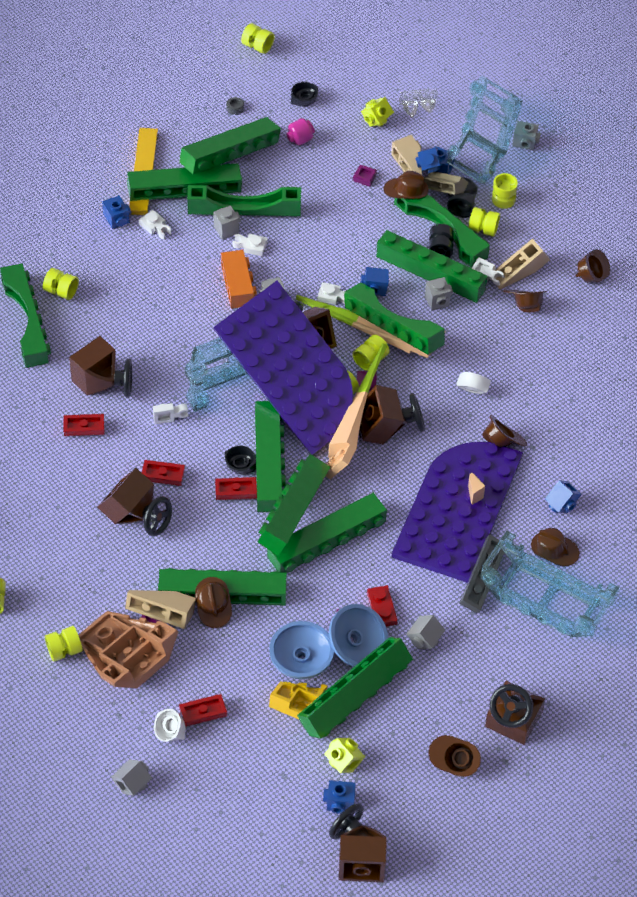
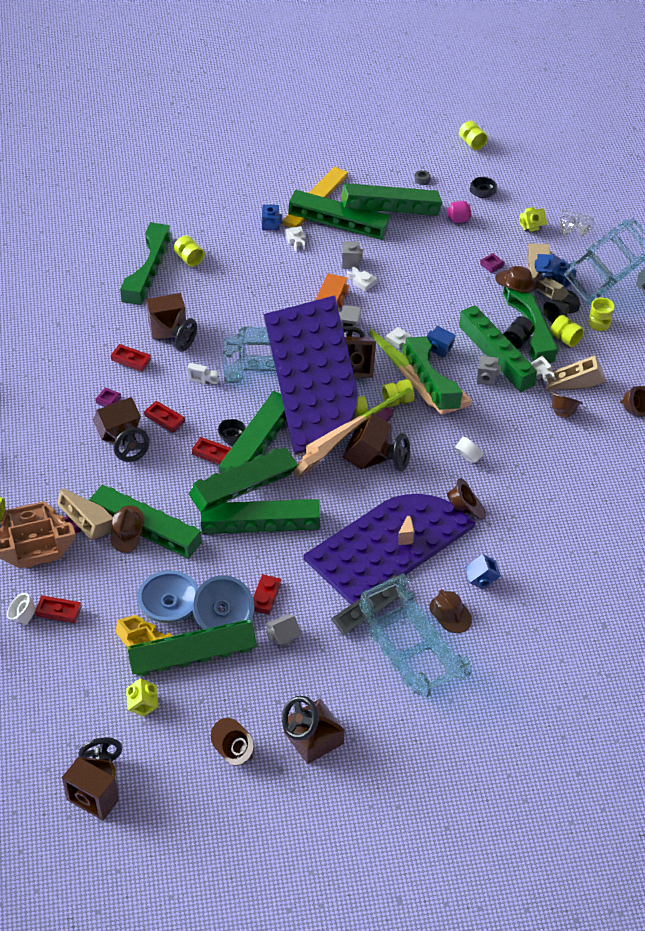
camera: 30 degrees right, 5 degrees down
(91, 477) = (107, 397): none -> magenta tile
(281, 202) = (405, 256): green arch -> none
(339, 795) = (116, 727): blue brick -> none

